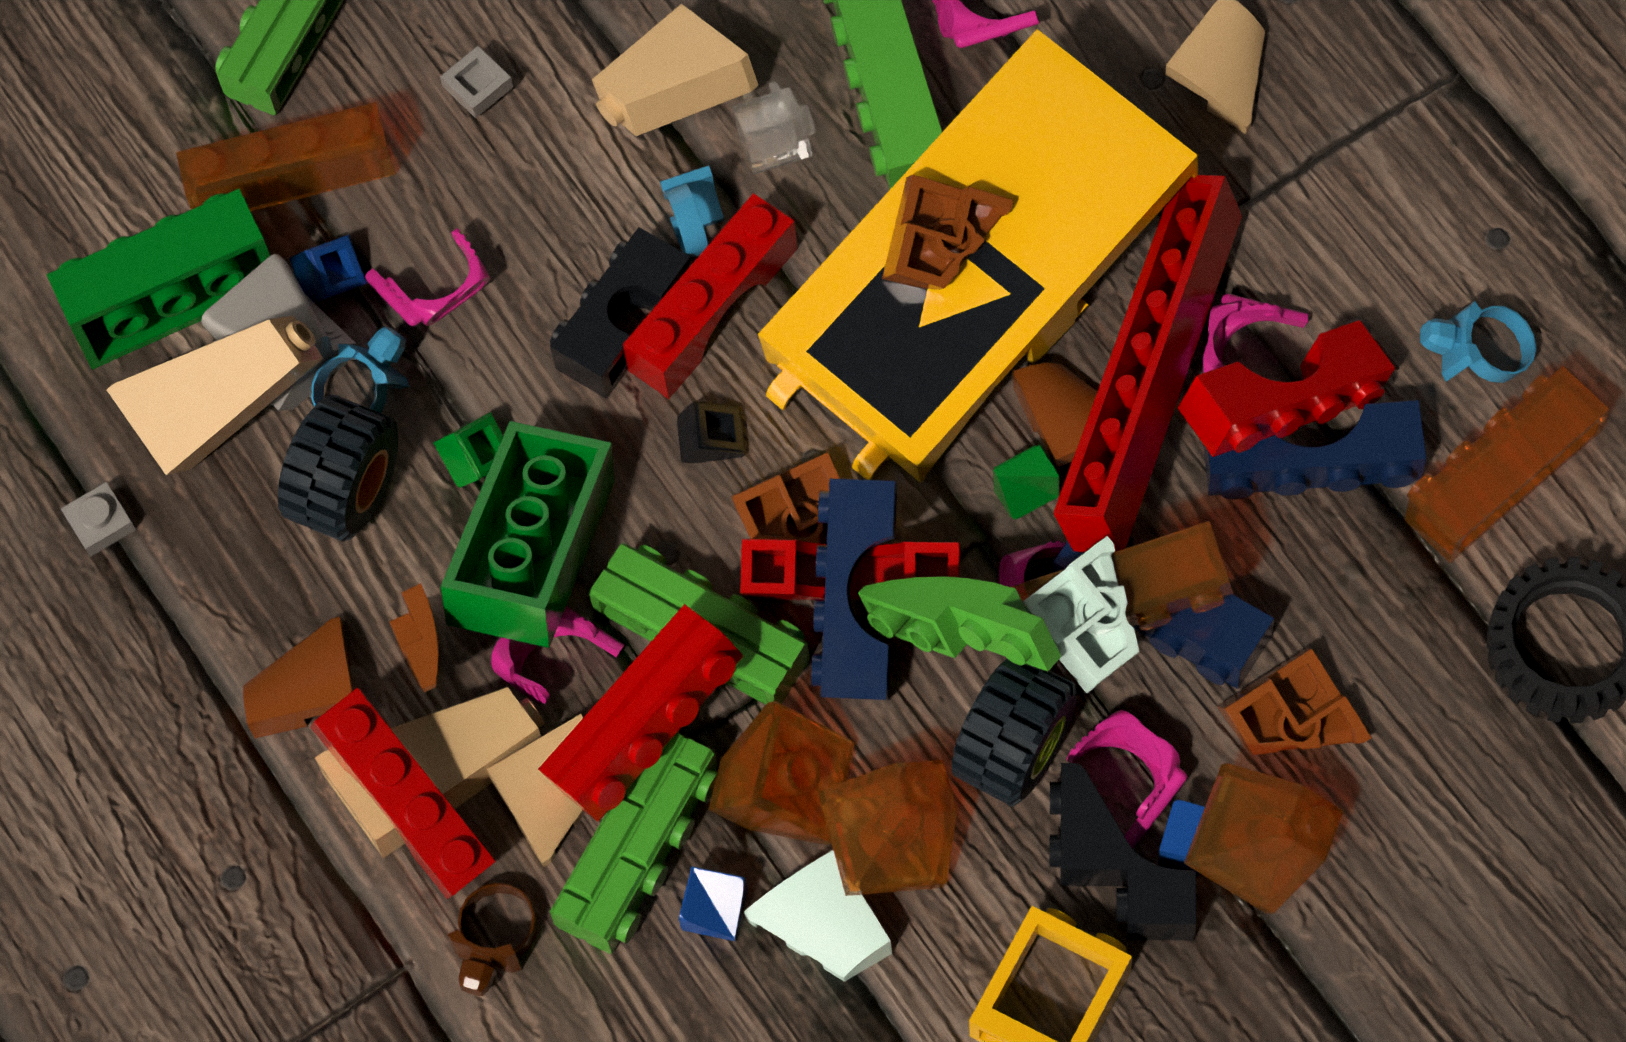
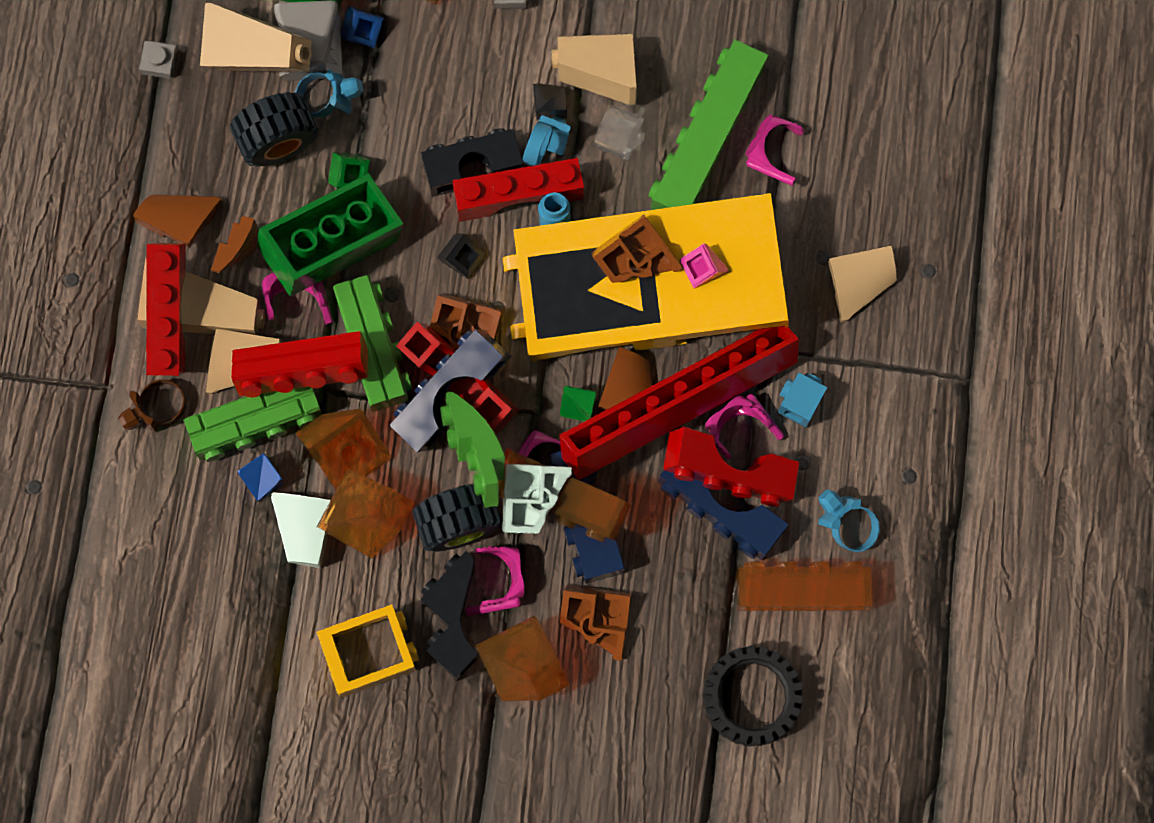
camera: 30 degrees right, 10 degrees up
(432, 310) = (380, 82): dark pink helmet -> none
(646, 165) = (549, 101): none -> black slope
(779, 277) = (554, 209): none -> dark azure brick
(1035, 177) = (702, 265): none -> dark pink slope
(1179, 835) = (490, 628): blue slope -> none
(1288, 251) = (801, 398): none -> dark azure brick

